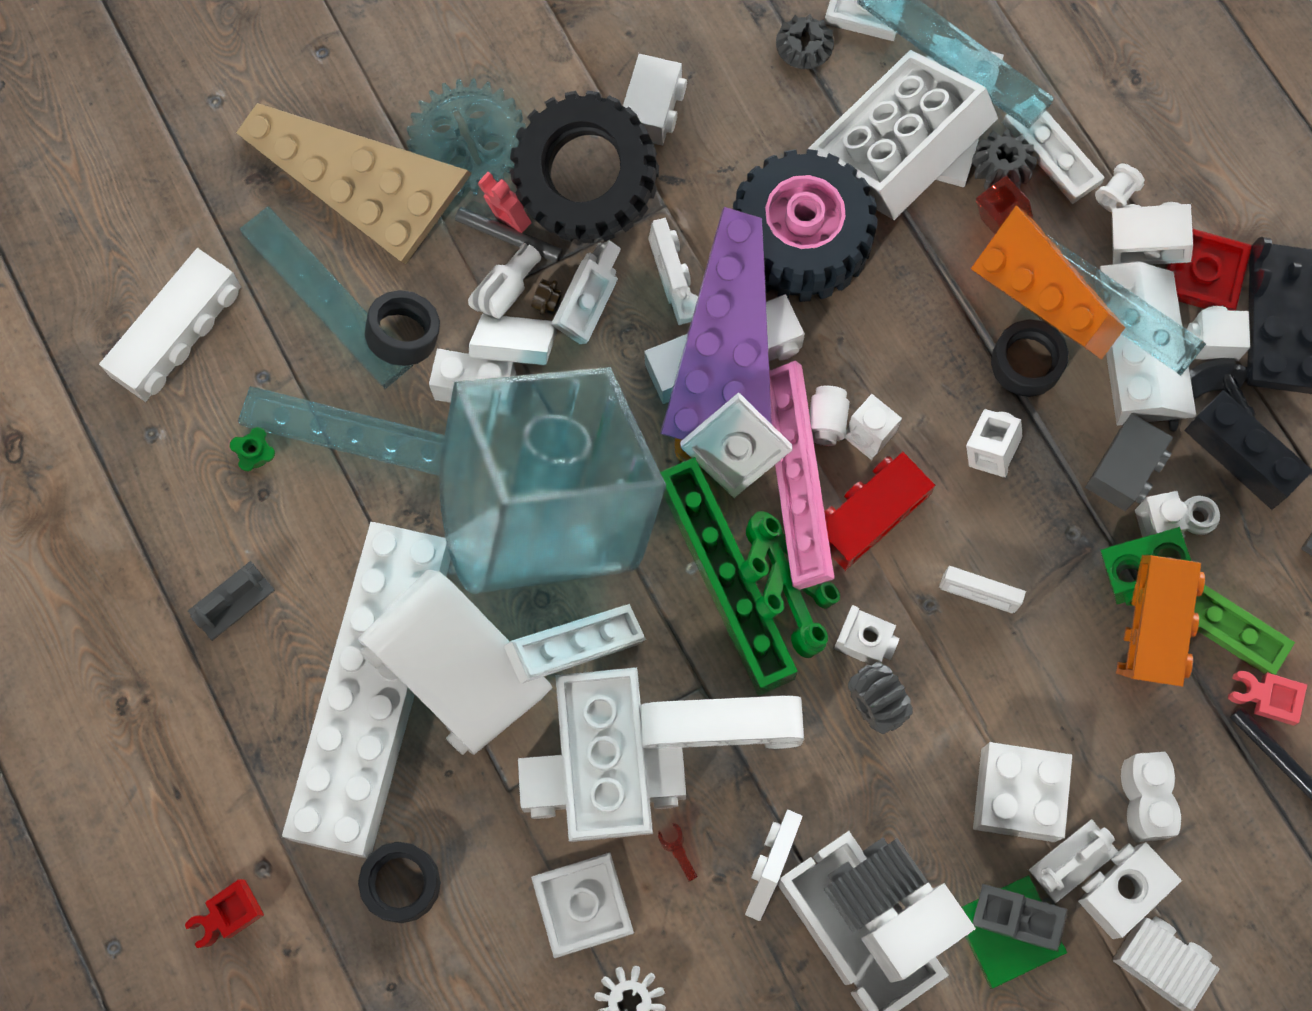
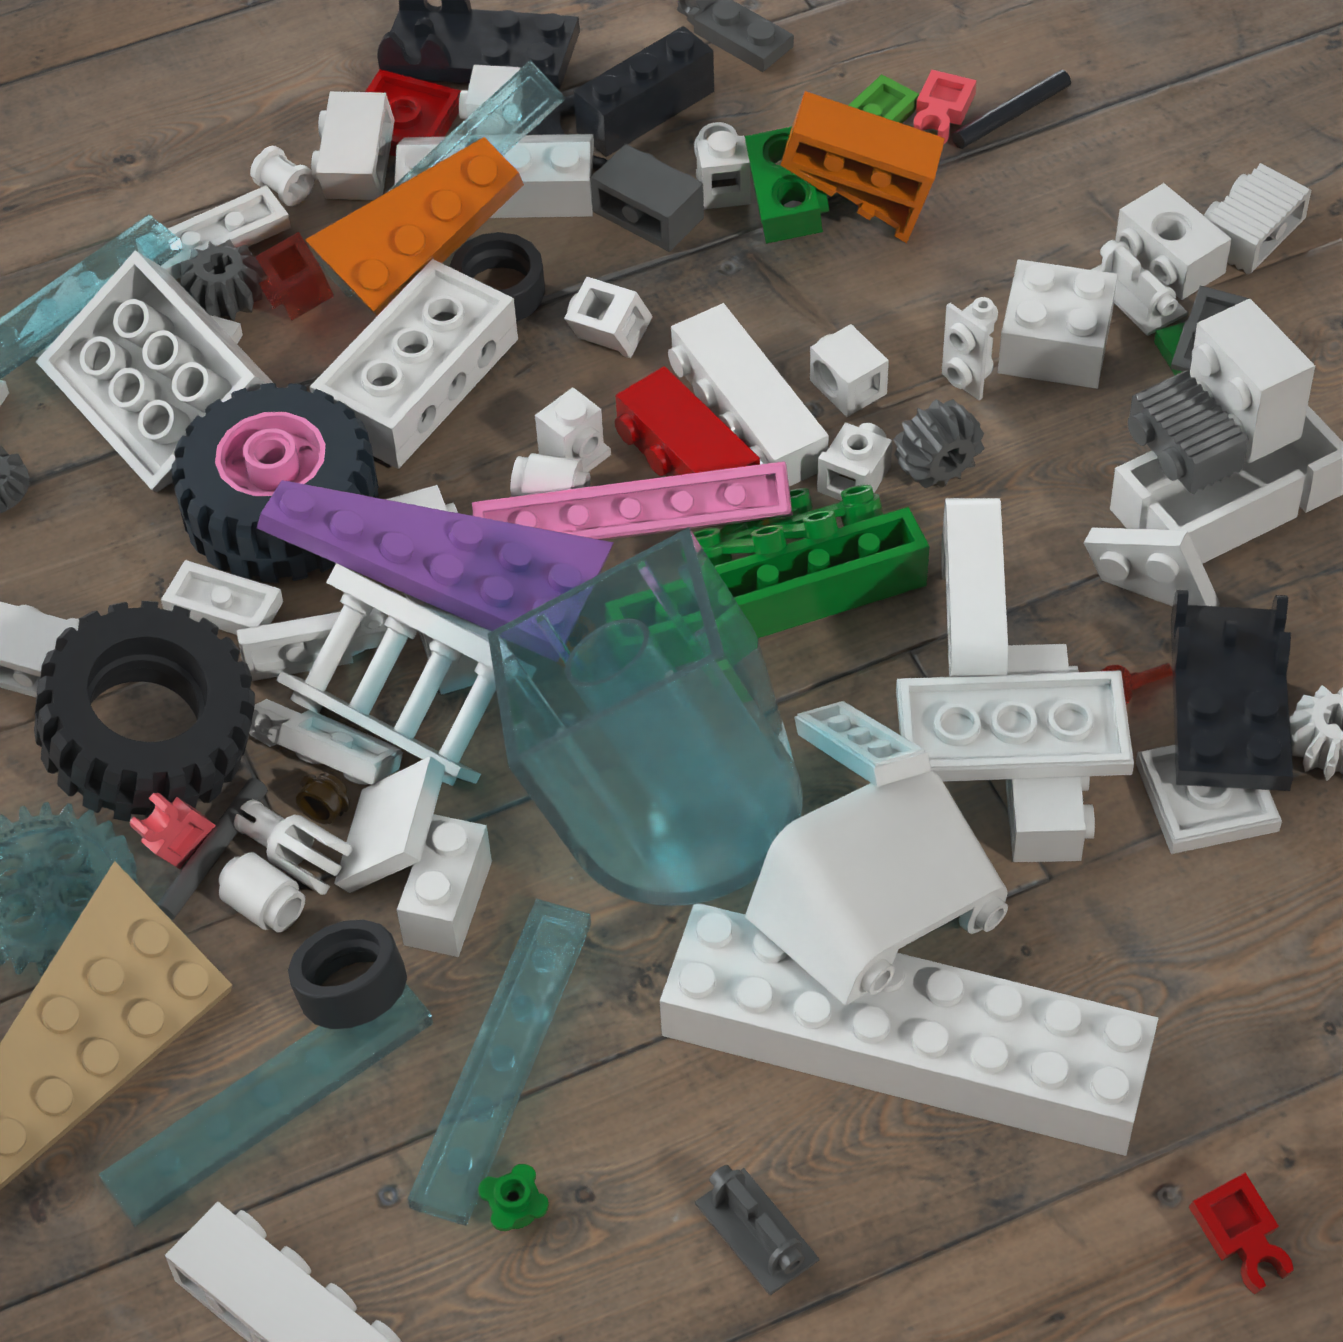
camera: 85 degrees left, 20 degrees down
(368, 878) = (1197, 963): black tyre -> none
(467, 267) = (261, 892): none -> white brick
(659, 344) = (403, 621): none -> white fence
(663, 923) = (1231, 695): none -> black hinge
(702, 215) = (222, 598): none -> white plate
(736, 445) = (579, 545): white tile -> none
(924, 552) = (747, 391): none -> white brick
(928, 282) = (421, 358): none -> white brick
(959, 627) = (848, 370): none -> white brick
(979, 720) = (968, 345): none -> white hinge
(982, 589) = (806, 330): white tile -> none
(1149, 787) = (1062, 210): white brick -> none

